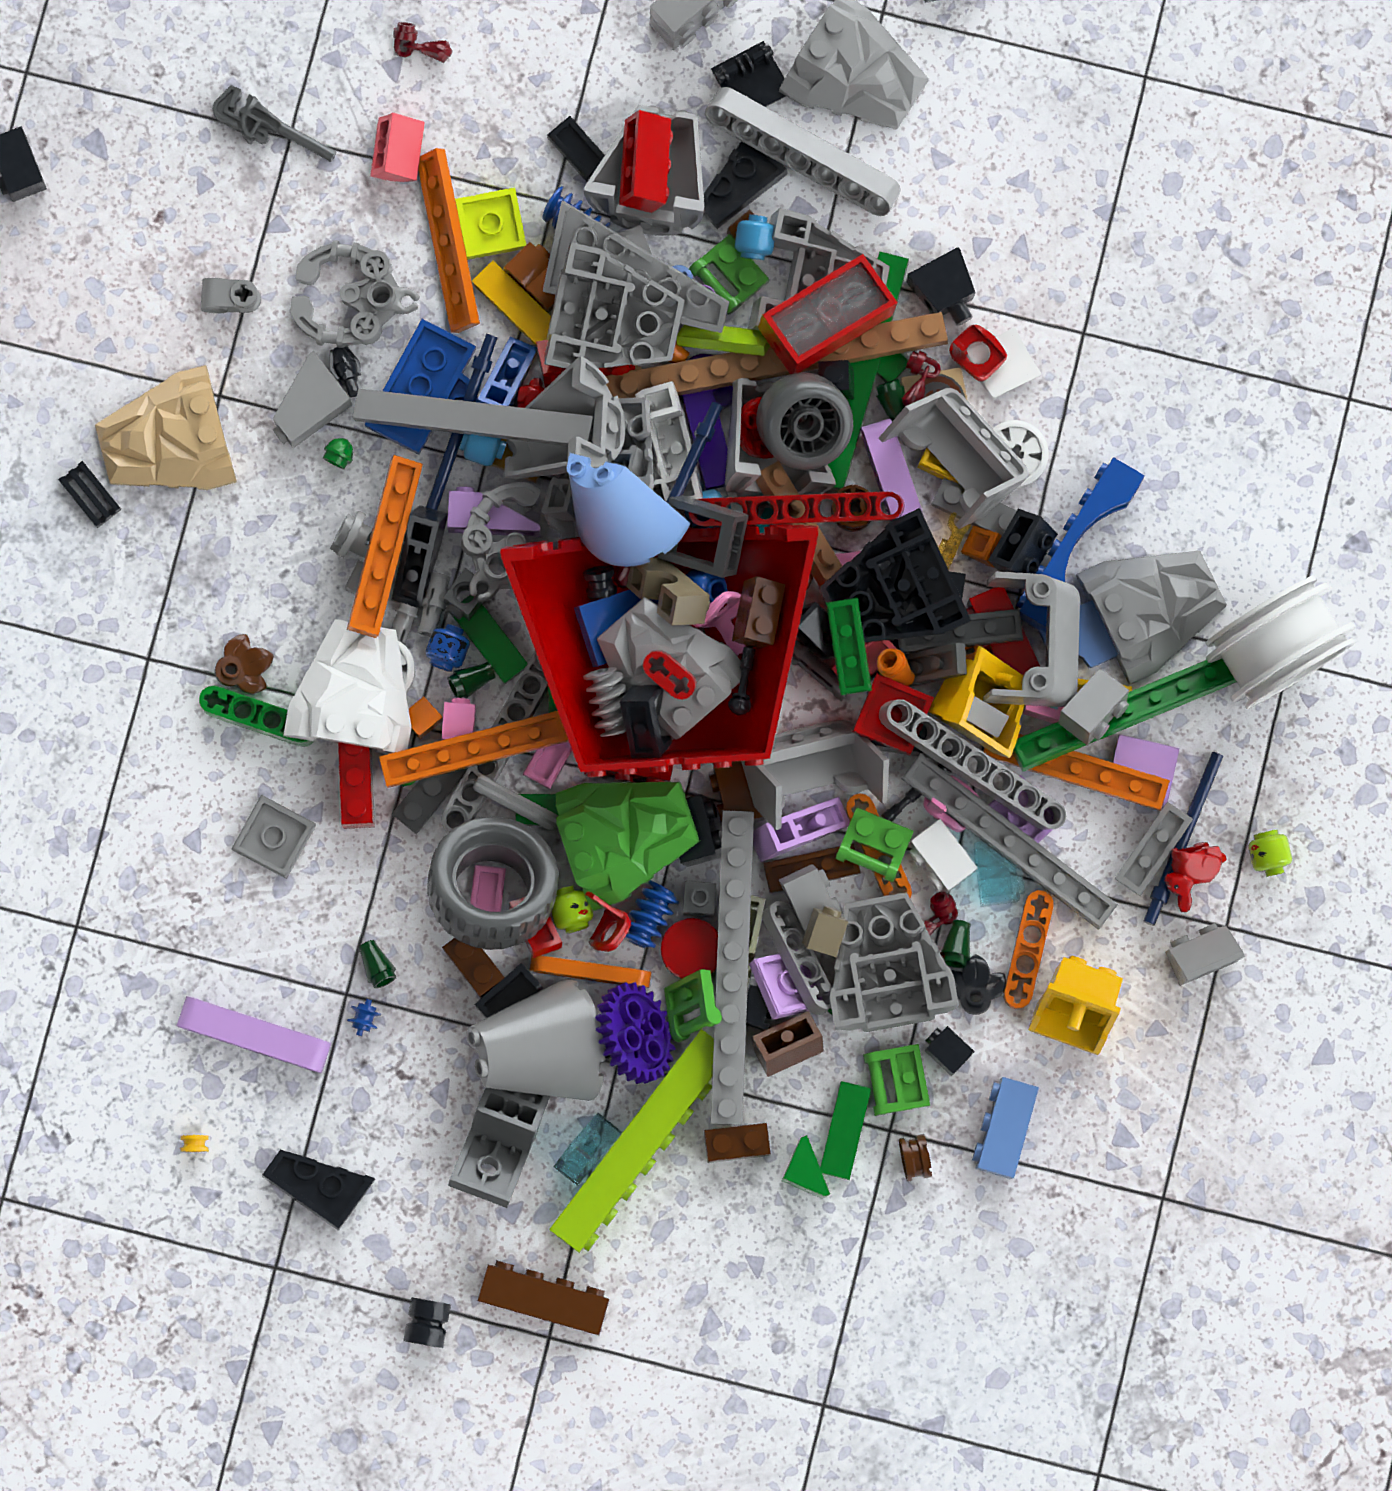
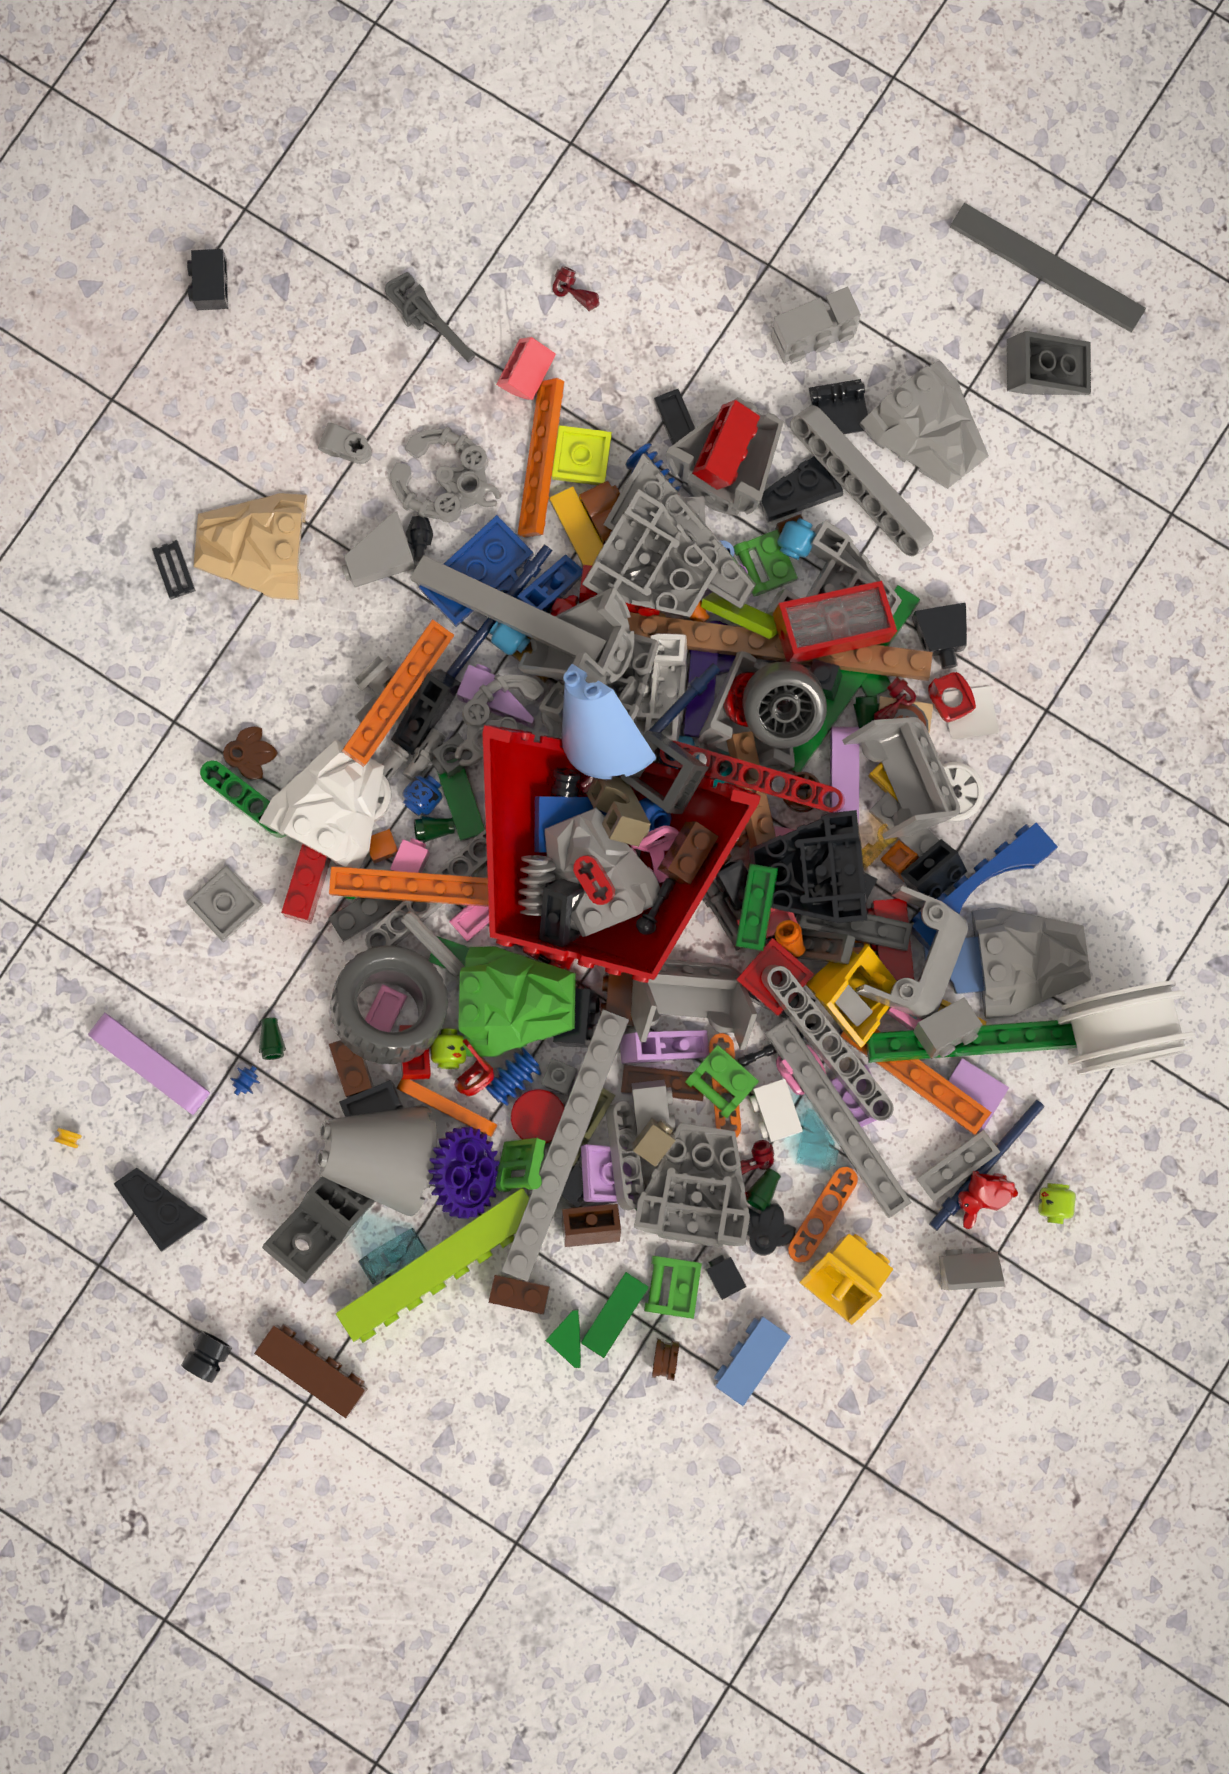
camera: 25 degrees right, 0 degrees up
(338, 452) = (390, 603): green plate -> none

